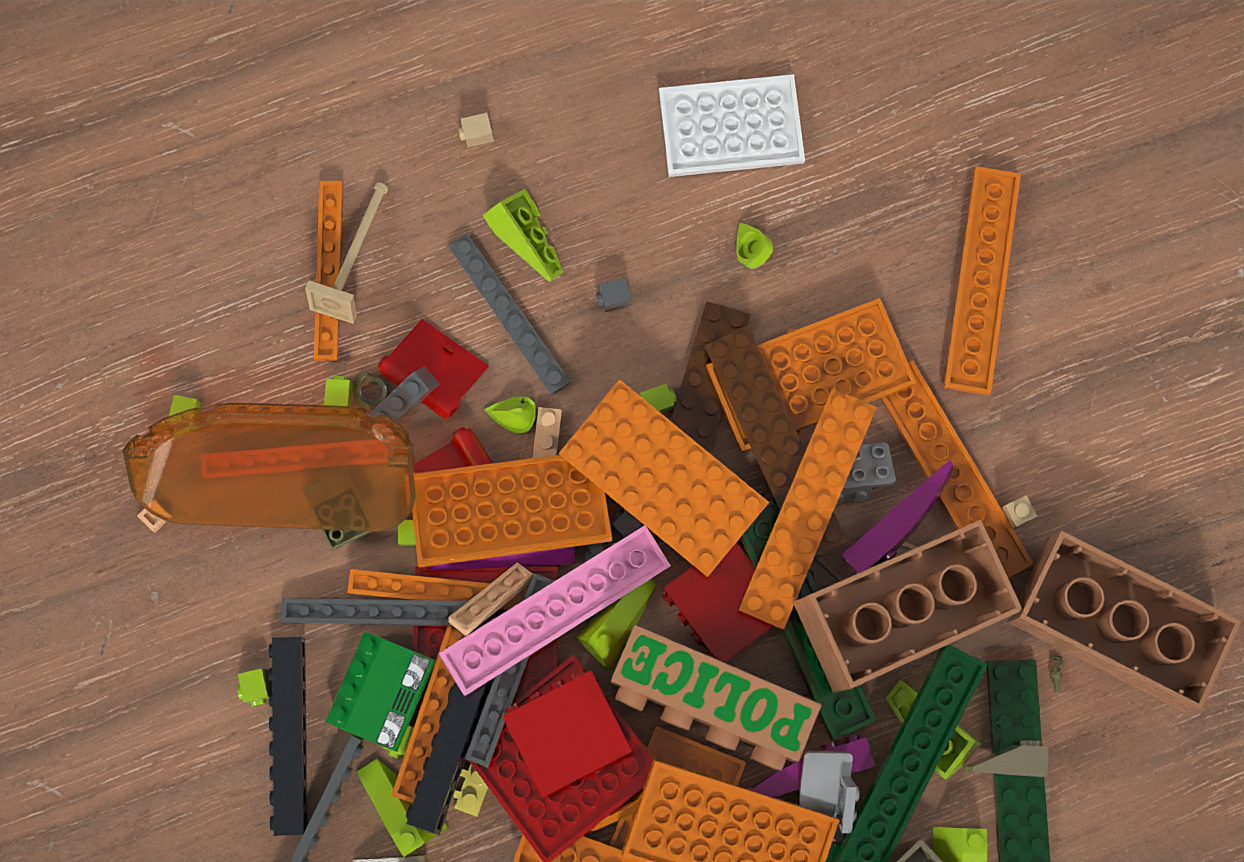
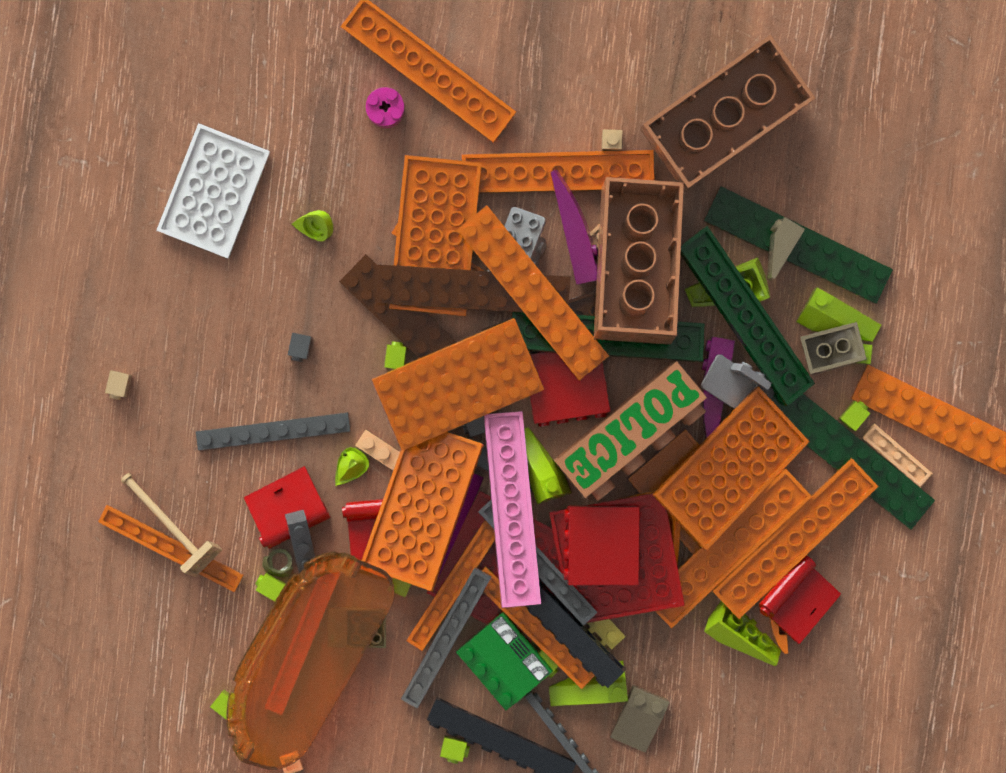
camera: 60 degrees left, 10 degrees up
(491, 599) = (481, 550): light nougat tile -> none
(518, 226) = (213, 390): lime wedge -> none
(921, 242) = (390, 98): none -> dark pink brick
(1056, 674) = (738, 176): olive hand -> none

